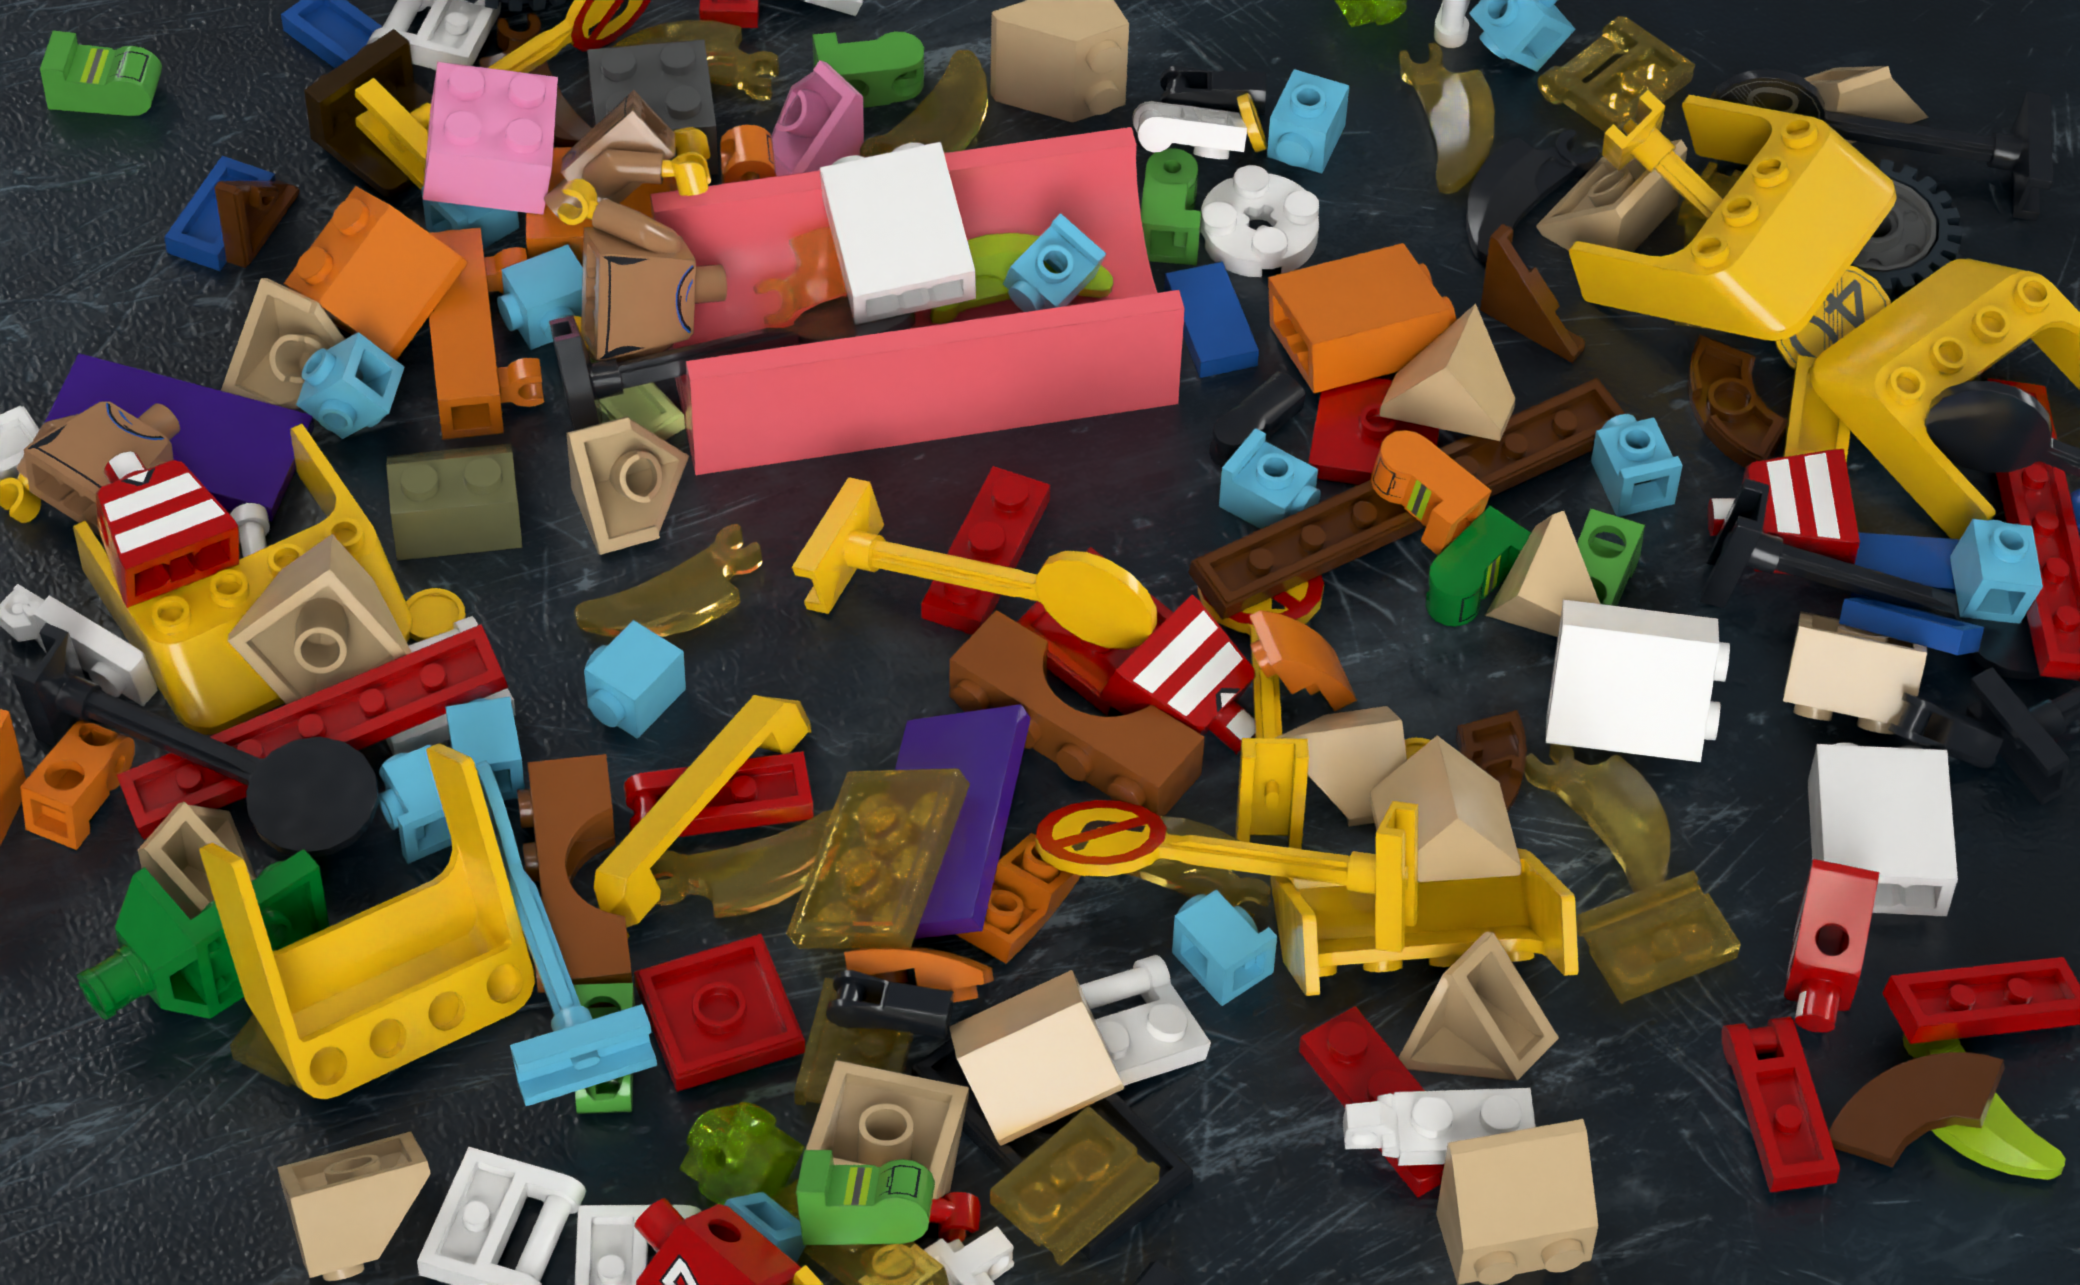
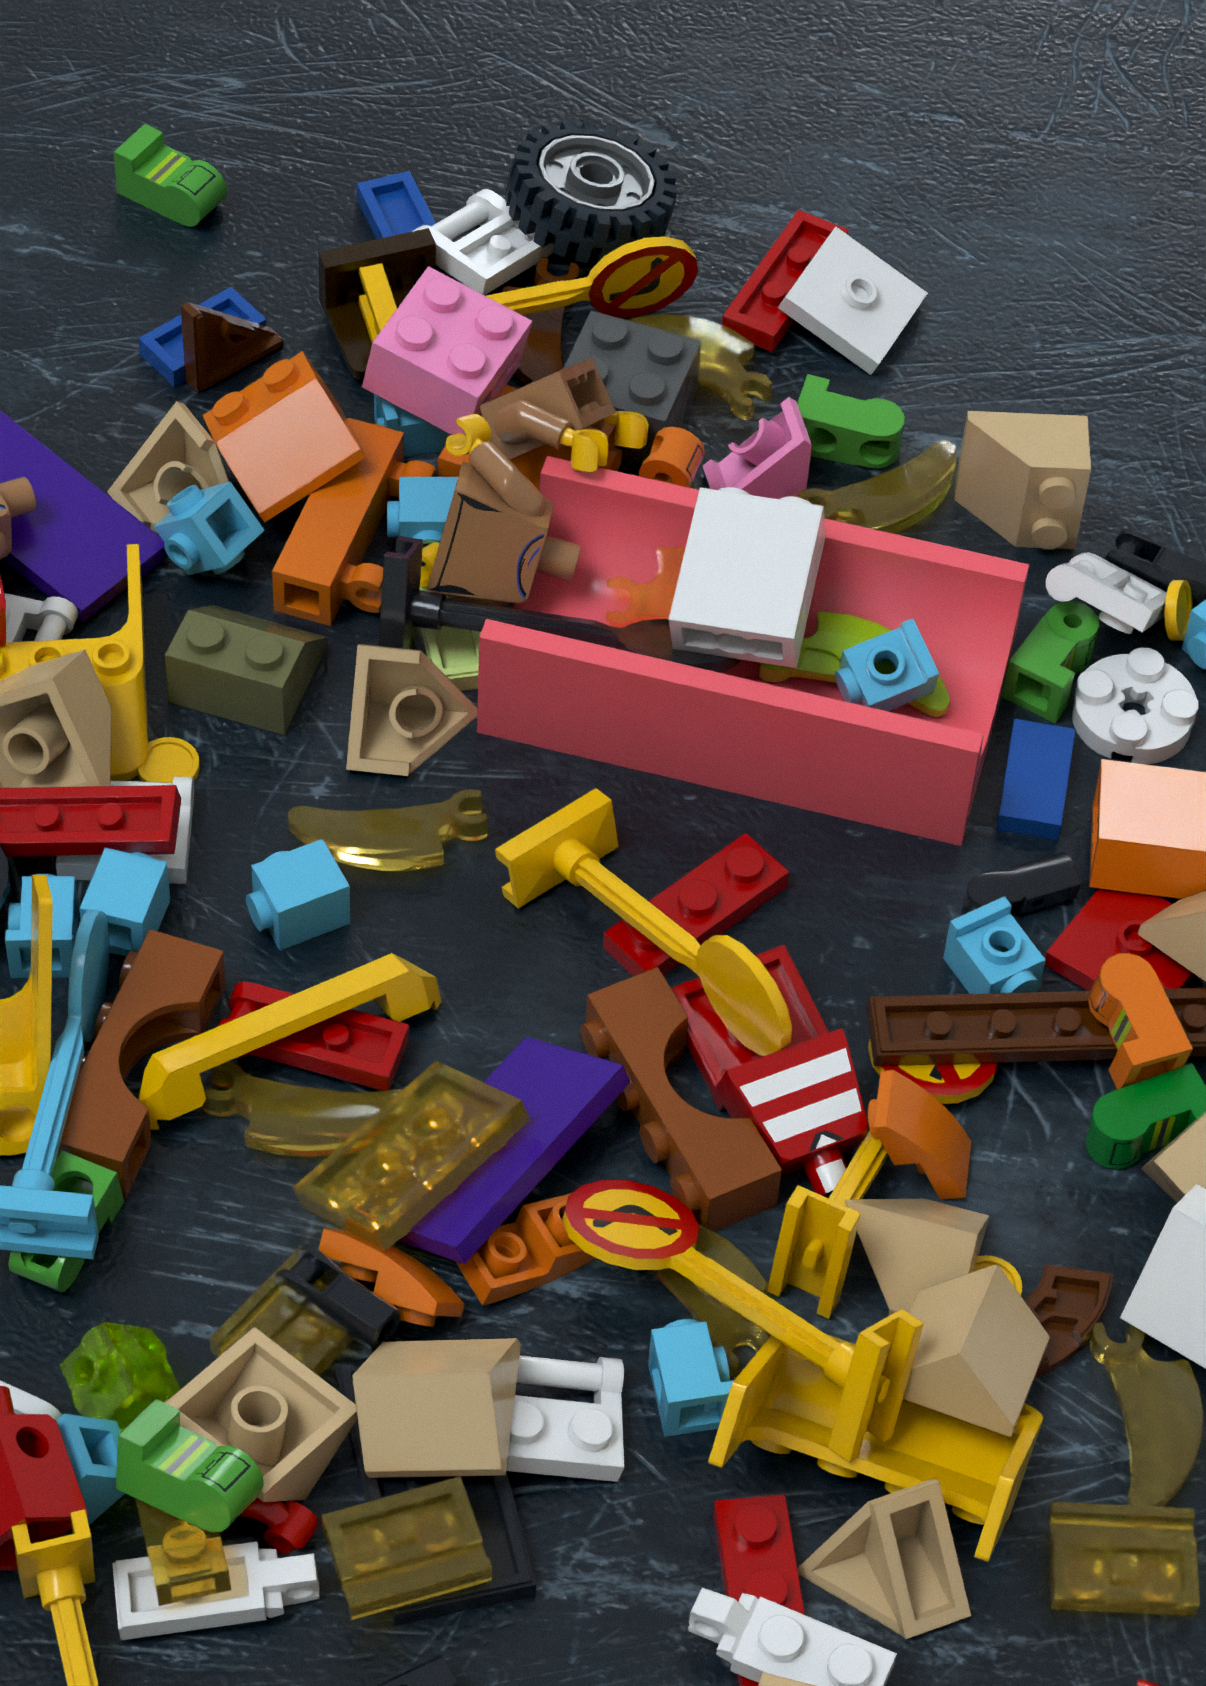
camera: 25 degrees right, 0 degrees up
(719, 1012) = (191, 1235): red plate -> none

